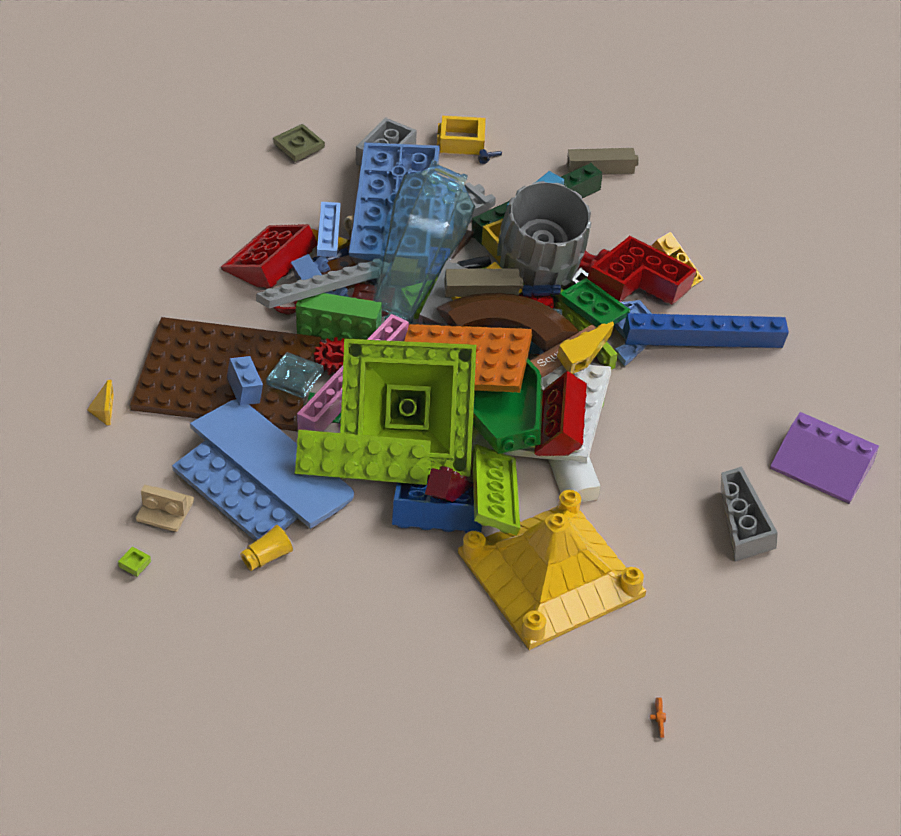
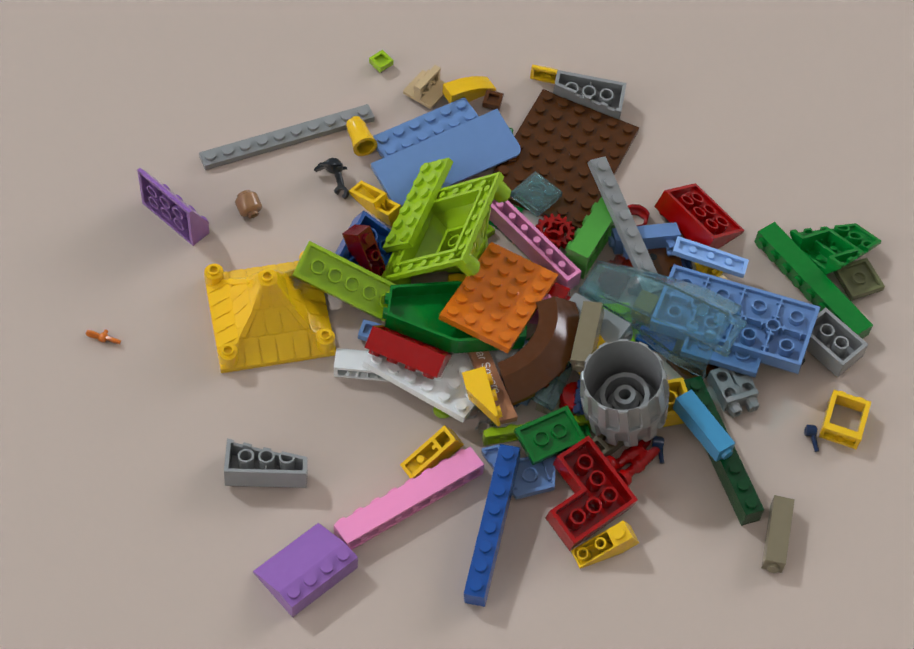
camera: 105 degrees right, 10 degrees up
(131, 352) = (593, 92): none -> light grey wedge
(156, 468) = (467, 87): none -> yellow slope
(163, 443) = (492, 100): none -> reddish brown plate
(244, 380) = (532, 152): medium blue brick -> none
(274, 154) = (835, 247): none -> green wedge
(291, 629) = (282, 137): none -> light grey plate
(313, 172) = (809, 278): none -> green brick
(327, 557) = (335, 166): none -> black piece
(358, 512) = (375, 202): none -> yellow slope
(413, 629) = (248, 204): none -> medium nougat head
(459, 693) = (172, 209): none -> medium lavender slope
(533, 477) = (365, 329): none -> medium blue plate
(649, 393) = (435, 449): none -> yellow slope
(710, 401) = (409, 498): none -> bright pink brick

